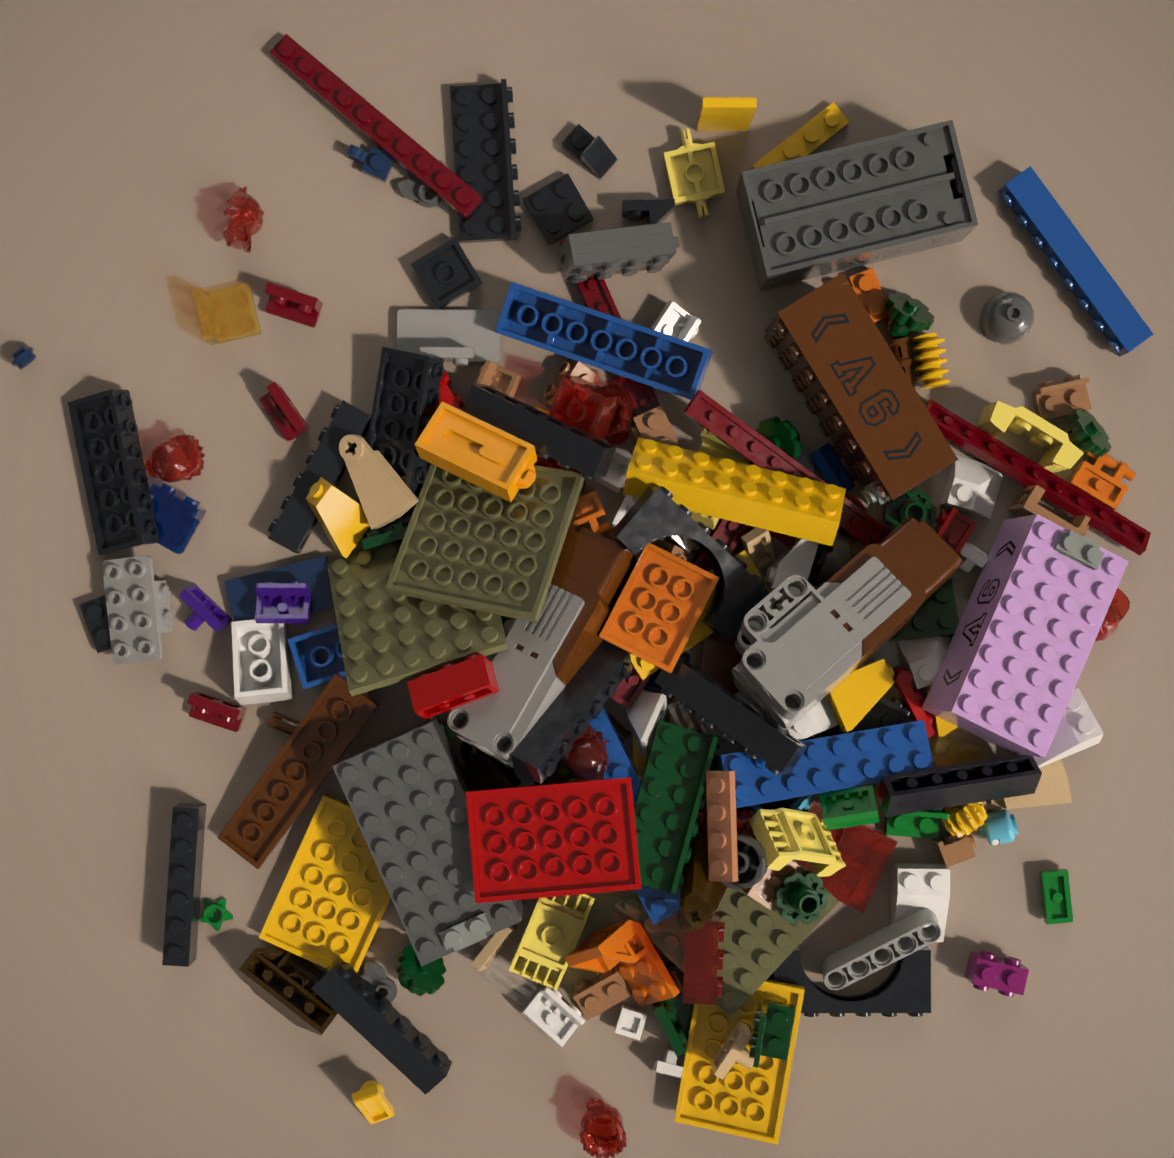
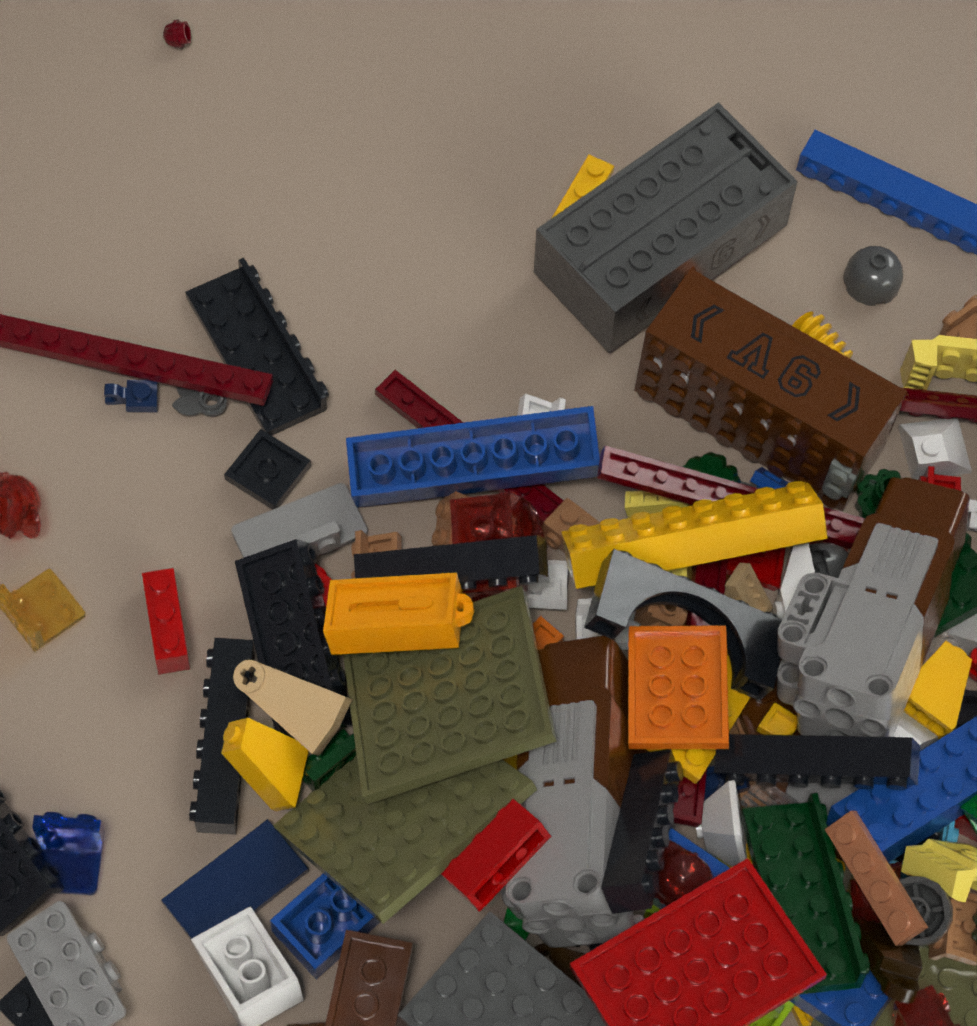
camera: 30 degrees left, 25 degrees down
(176, 459) = (47, 784): clear red hair -> none
(203, 610) = (150, 944): dark purple tile -> none
(283, 412) = (151, 682): dark red bracket -> none
(283, 602) = (243, 885): dark purple bracket -> none
(293, 305) = (110, 566): dark red bracket -> none
(315, 367) = (165, 621): none -> red brick
(558, 209) = (356, 362): black plate -> none
(590, 151) = (365, 295): black slope -> none
(617, 251) = (442, 366): dark grey piece -> none
(655, 209) = (455, 320): black slope -> none
(694, 173) = (482, 271): light yellow plate -> none
(726, 113) = (489, 197): yellow tile -> none
(726, 659) = (778, 722): none -> yellow tile
(906, 315) = (777, 304): dark green plant -> none

